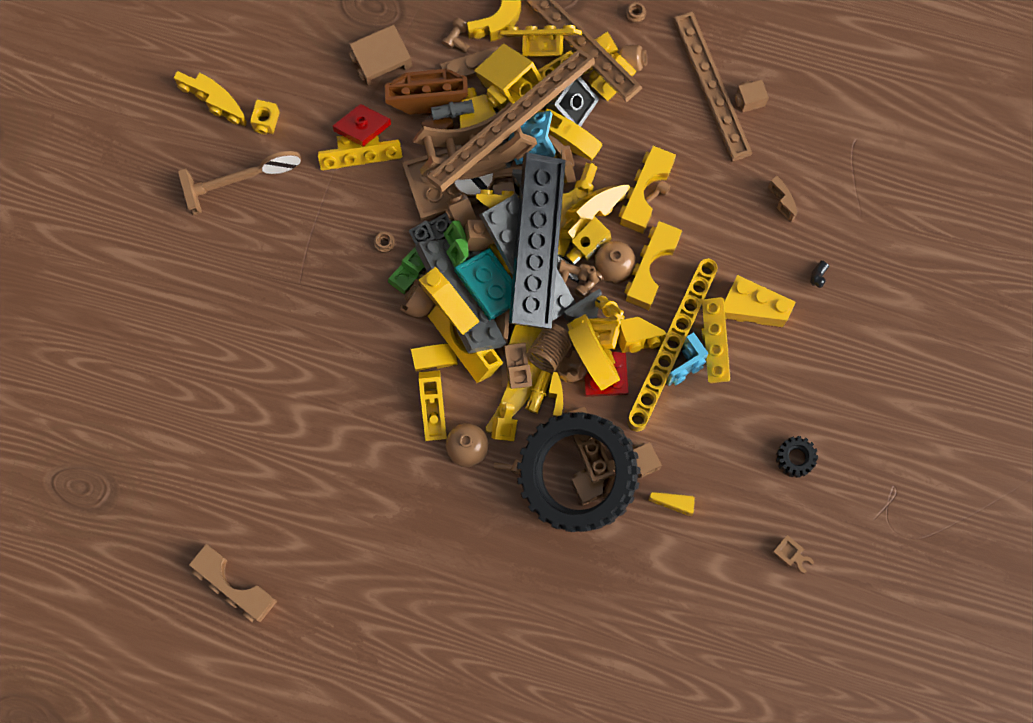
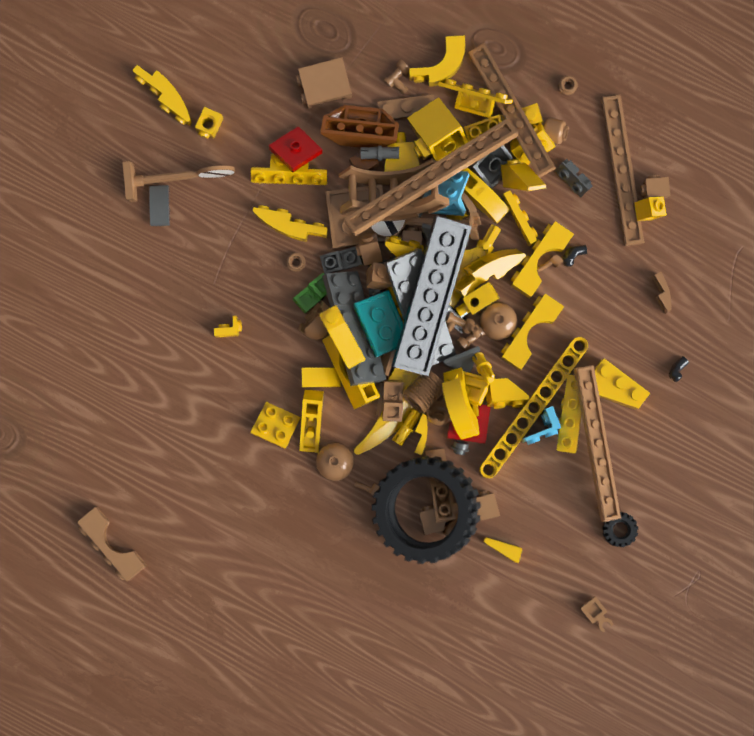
camera: 10 degrees right, 10 degrees up
(226, 211) = (159, 205): none -> dark grey slope
(322, 327) = (226, 331): none -> yellow bracket
(361, 204) = (281, 223): none -> yellow slope
(393, 418) = (275, 425): none -> yellow hinge
(458, 243) = (361, 284): bright green slope -> none
(504, 426) = (371, 452): yellow plate -> none
(602, 402) = (460, 447): none -> dark grey plate
(605, 106) = (520, 176): none -> yellow slope
(615, 151) = (520, 217): none -> yellow plate
(657, 99) = (567, 172): none -> dark grey hinge
(678, 177) = (571, 254): none -> black arm
(750, 115) = (650, 208): none -> yellow brick
(751, 365) = (597, 443): none -> medium nougat tile

